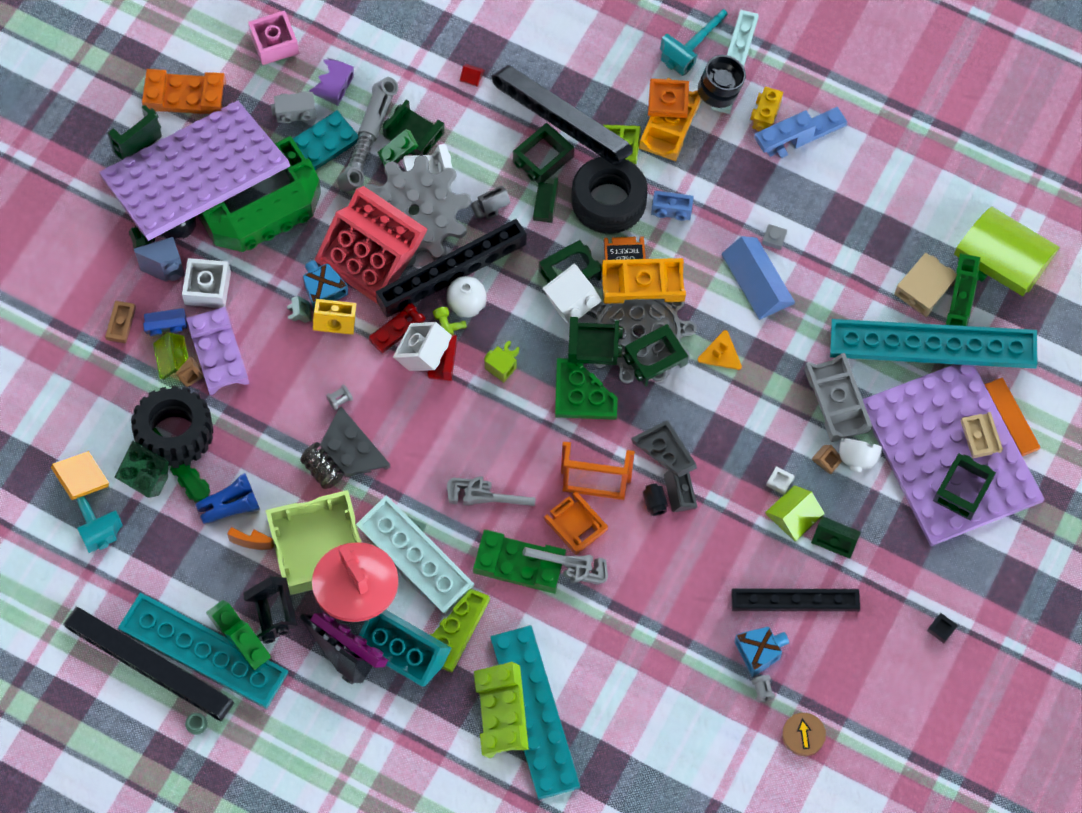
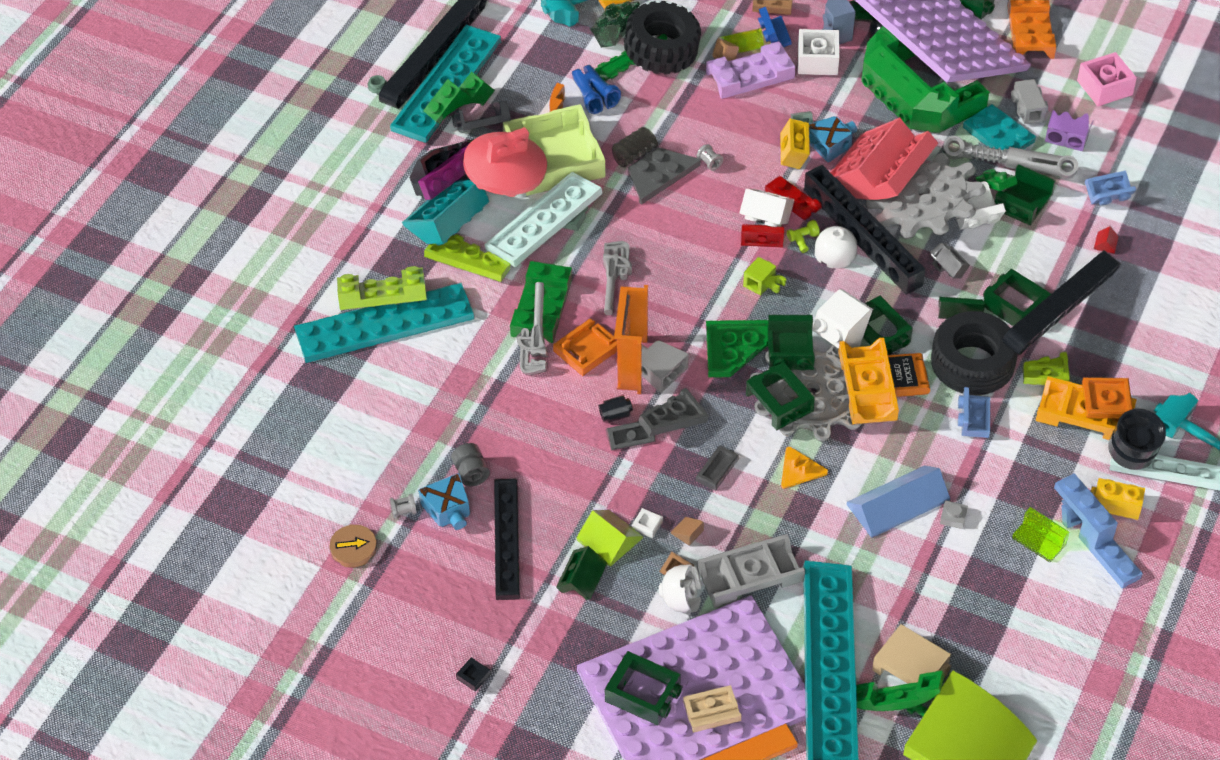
camera: 90 degrees right, 15 degrees down
(412, 59) = (1109, 187): none -> medium blue bracket
(605, 451) = (663, 364): none -> light grey torso
(720, 419) = (717, 468): none -> flat silver tile
(720, 627) = (470, 464): none -> dark grey wheel
(789, 446) = (688, 530): none -> medium nougat slope
(798, 174) = (1041, 535): none -> clear neon green panel

